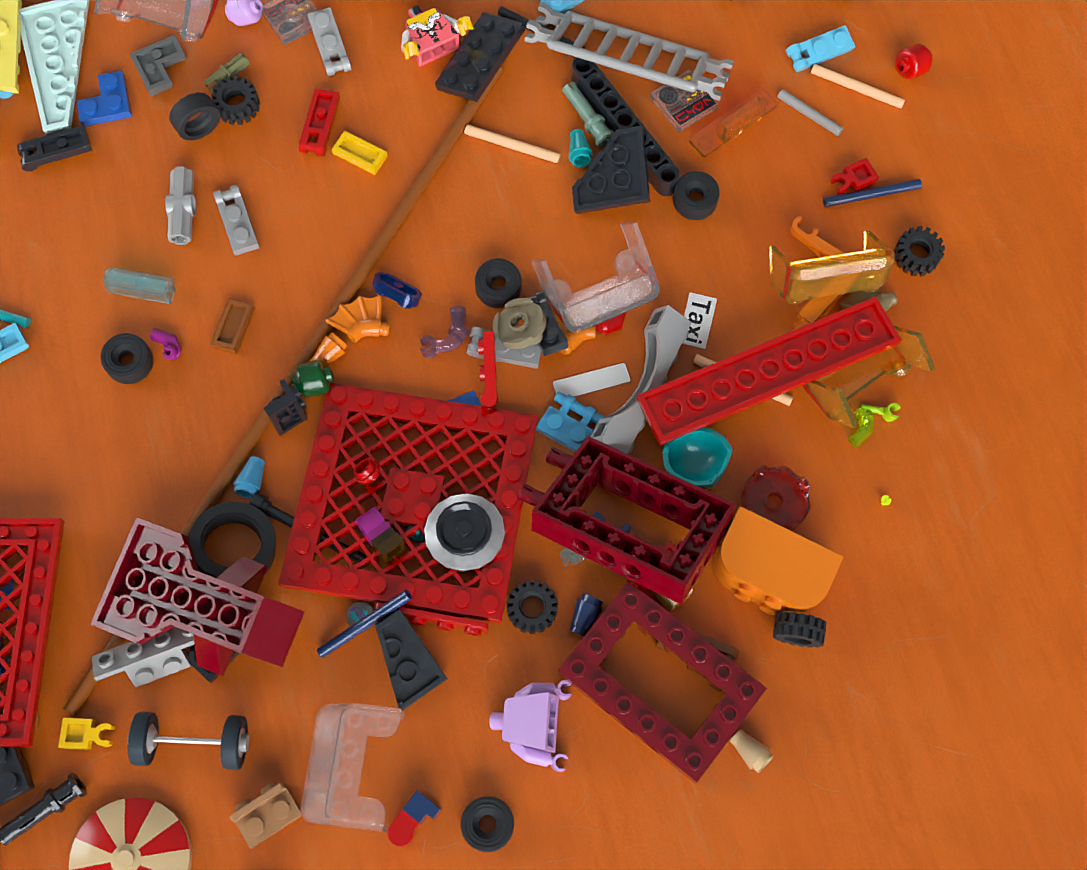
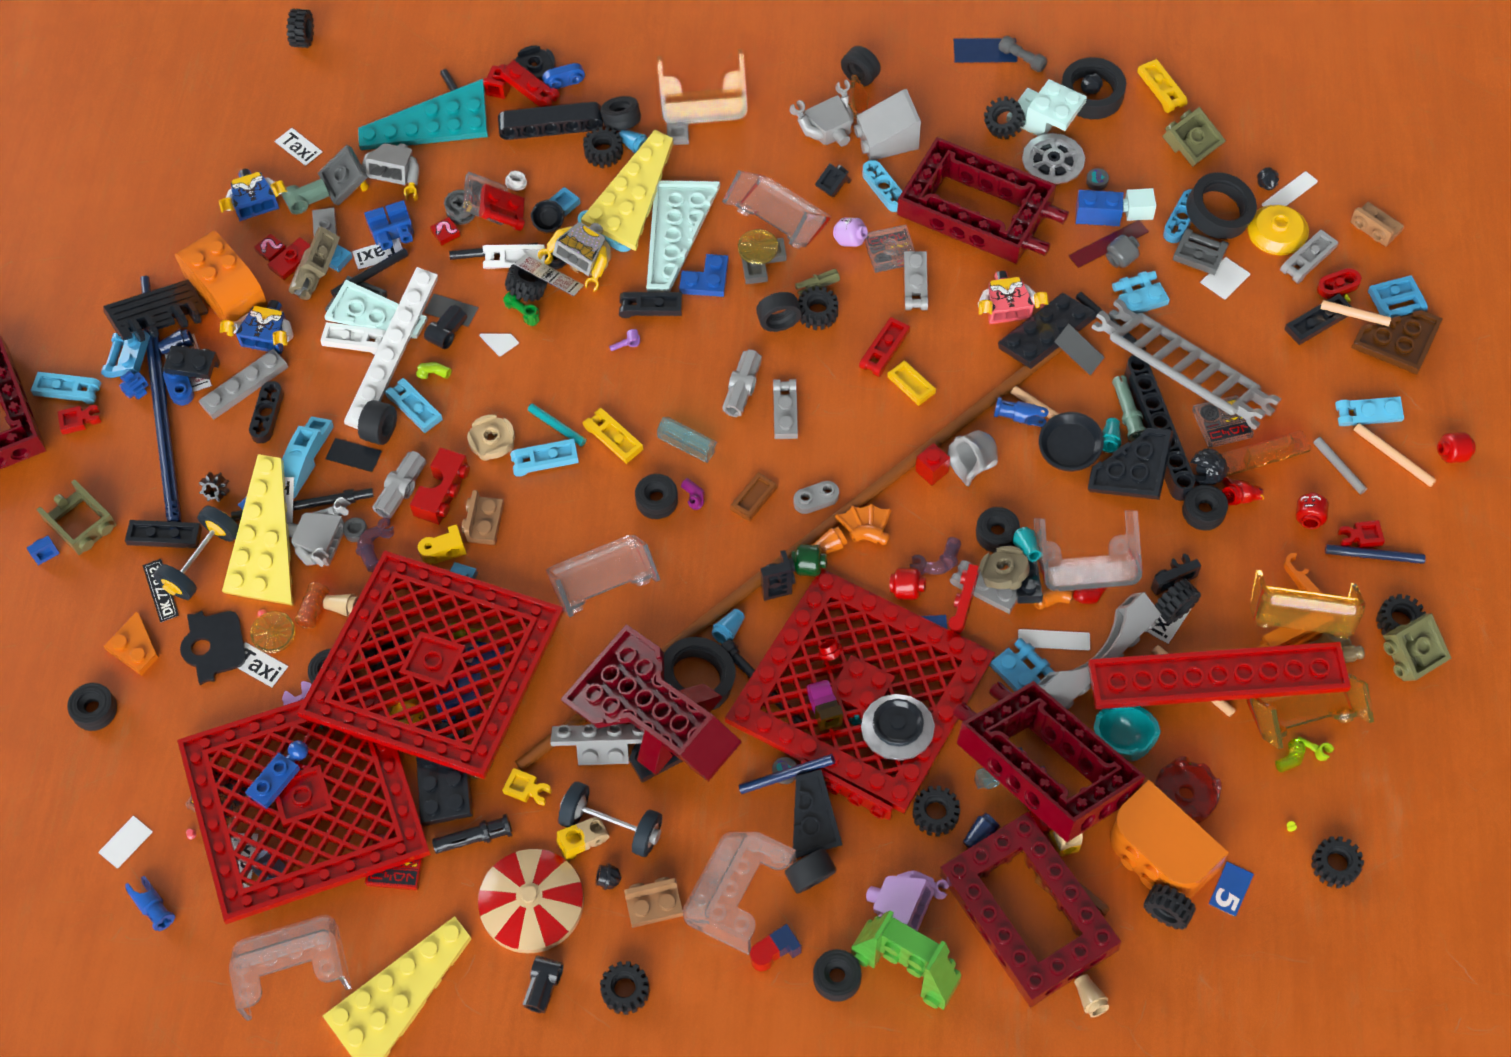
camera: 25 degrees right, 10 degrees down
(46, 193) = (632, 340): none -> medium lavender hand
(58, 305) = (613, 435): none -> yellow plate
(88, 464) = (601, 571): none -> clear windscreen
(150, 51) = (757, 246): none -> clear yellow wheel
(164, 769) = (581, 837): none -> leg
(207, 803) = (608, 876): none -> black plate
(300, 306) = (817, 497): none -> light grey plate
(396, 289) = (908, 510): clear blue plate -> none
(409, 233) = (932, 464): none -> red brick
(423, 721) = (810, 870): none -> black tyre
(424, 371) = (907, 583): none -> red head
(447, 211) = (972, 455): none -> light grey piece
(482, 150) = (1021, 412): none -> blue piece
(519, 67) = (1079, 349): none -> dark grey sticker
(532, 287) = (1027, 541): none -> teal cone
(542, 167) = (1071, 441): none -> black piece
(547, 776) = (913, 950): none -> bright green wedge
(688, 151) = (1210, 467): none -> black piece
(694, 272) = (1165, 579): none -> black plate
(702, 302) = (1177, 601): none -> black tyre
(725, 168) = (1241, 491): none -> red animal
(800, 167) = (1312, 510): none -> red head
(849, 586) = (1231, 889): none -> blue sticker
(945, 278) = (1416, 648): none -> olive plate
(952, 511) = (1333, 876): none -> black tyre

